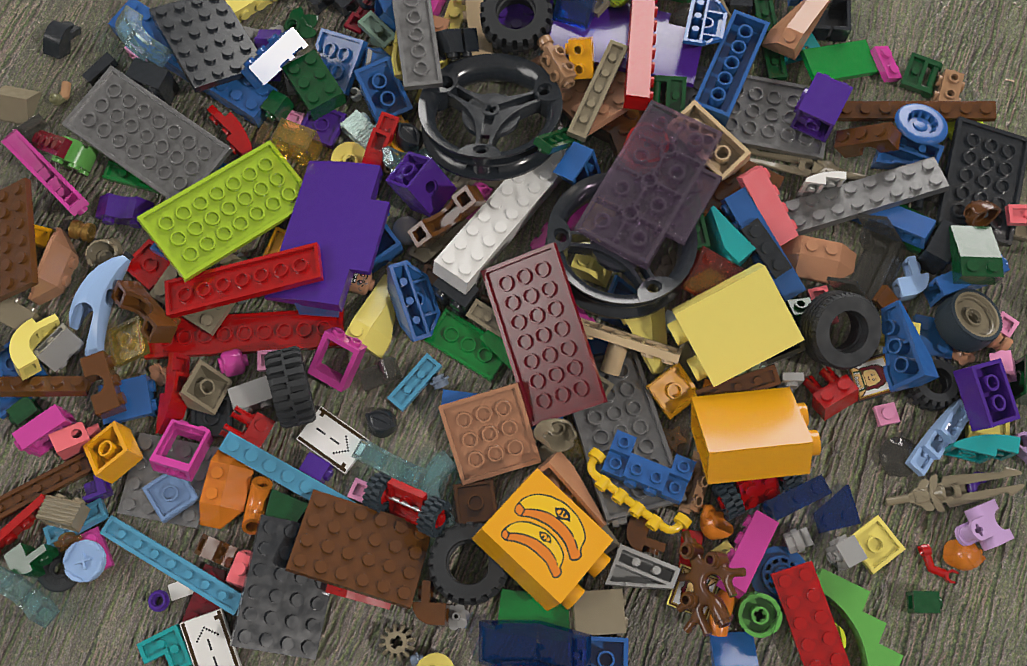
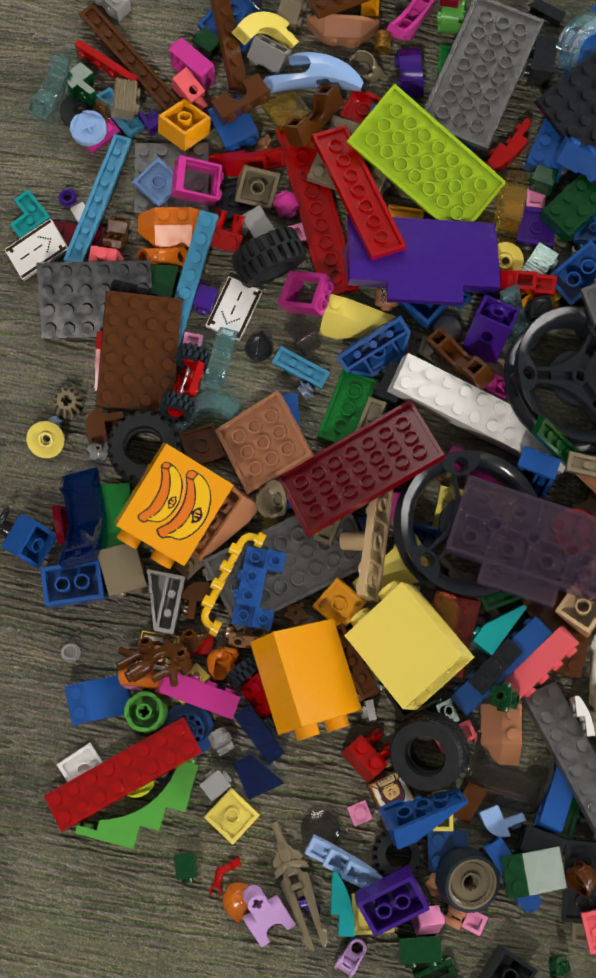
camera: 75 degrees right, 5 degrees up
(790, 243) = (510, 699): none -> dark green brick

